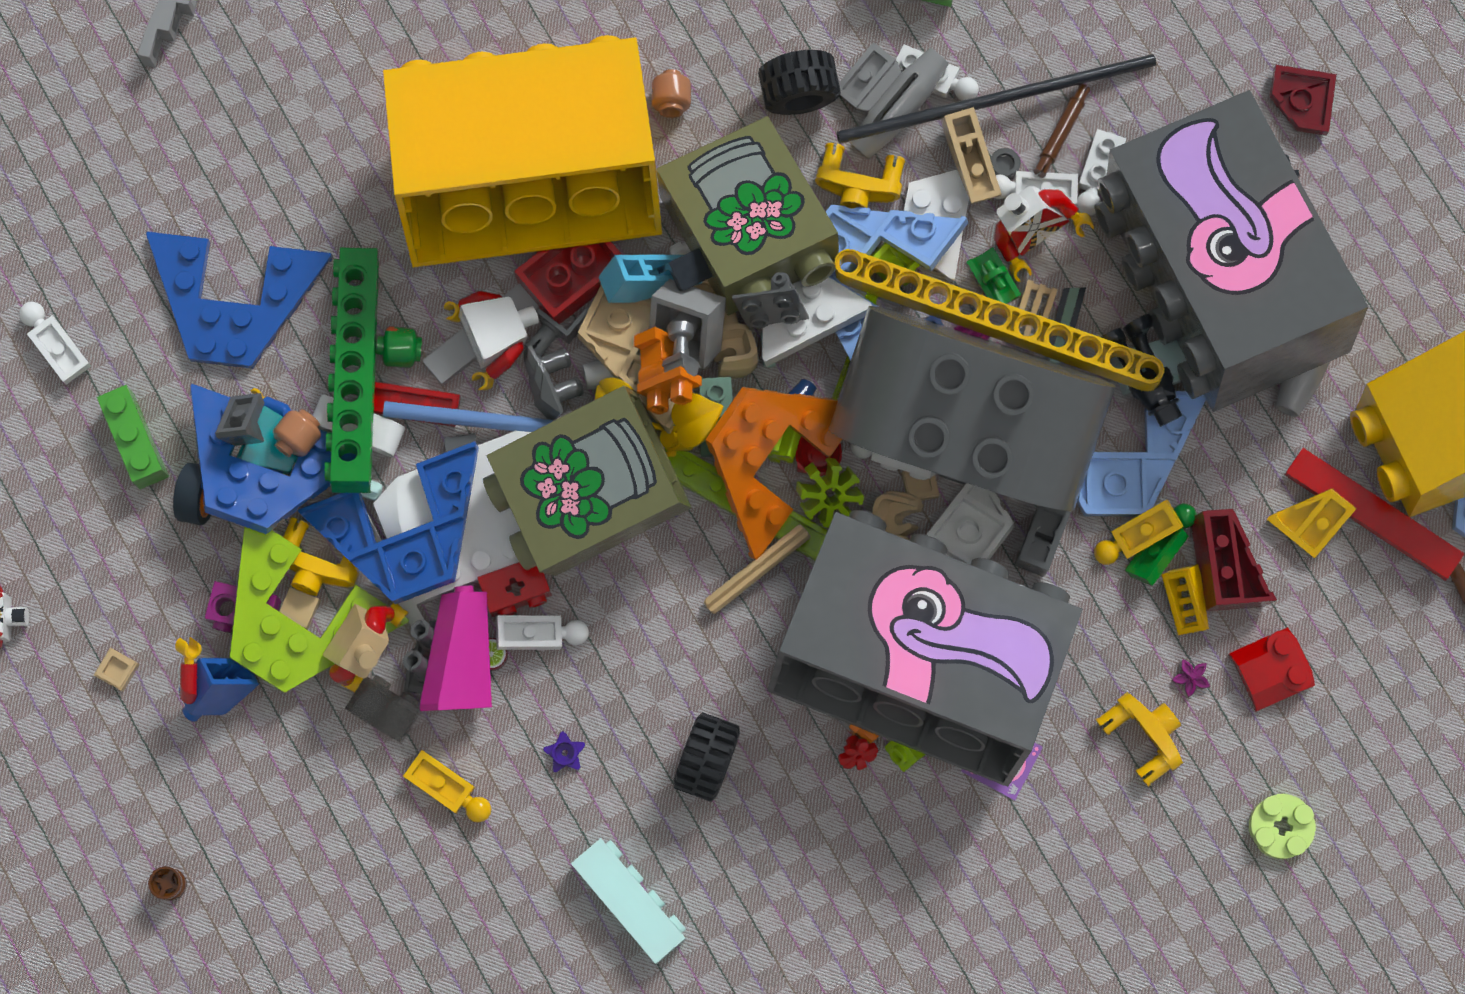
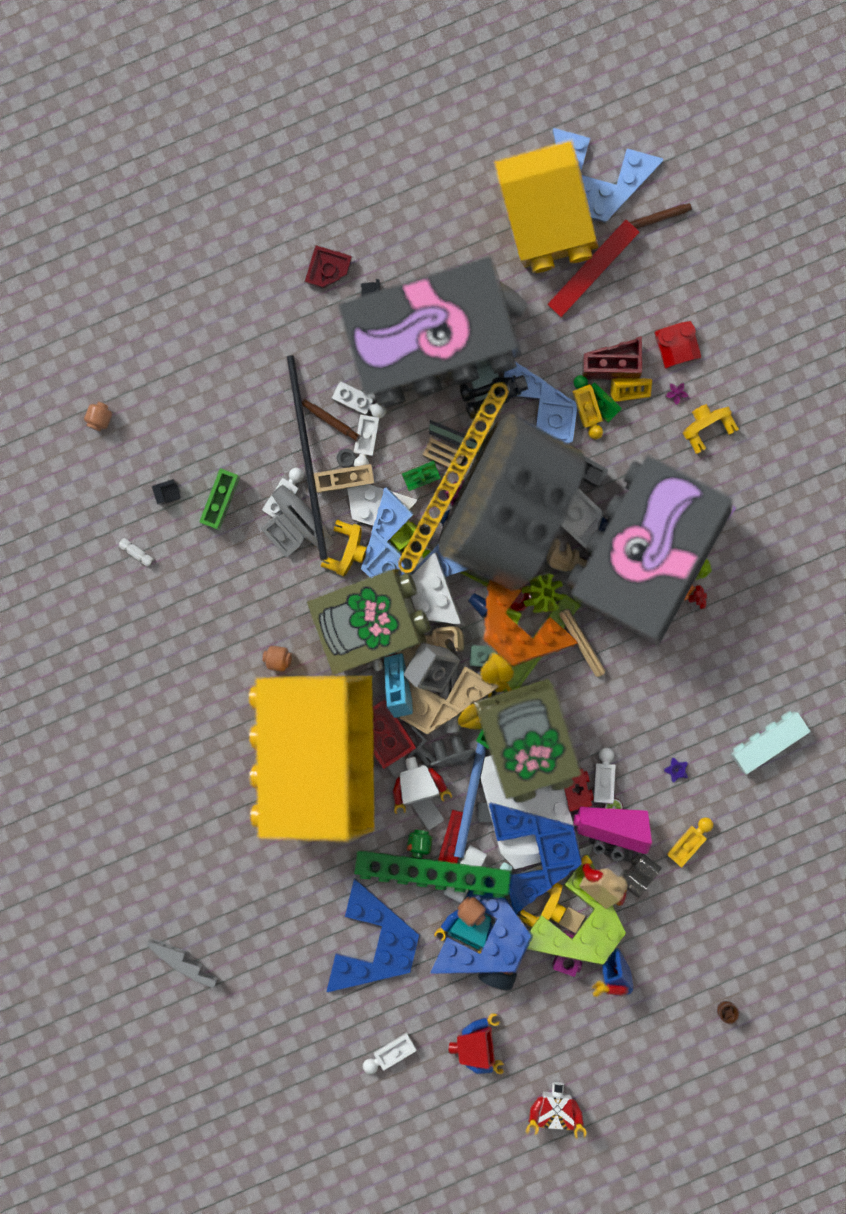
camera: 80 degrees left, 10 degrees up
(75, 476) = (476, 1047): none -> red torso
(116, 669) = (595, 1031): tan tile -> none
(132, 437) = (456, 1010): bright green brick -> none
(240, 420) = (460, 945): dark grey slope -> none
(666, 366) = (462, 683): orange hips -> none
(688, 270) = (400, 663): black panel -> none
(706, 757) = (695, 687): black tyre -> none
(773, 306) = (429, 606): dark grey hinge -> none
(799, 82) = (283, 578): black tyre -> none
(1032, 218) = (388, 447): torso -> none
(1298, 816) = (781, 349): yellowish green plate -> none
(1313, 520) = (593, 305): yellow wing -> none

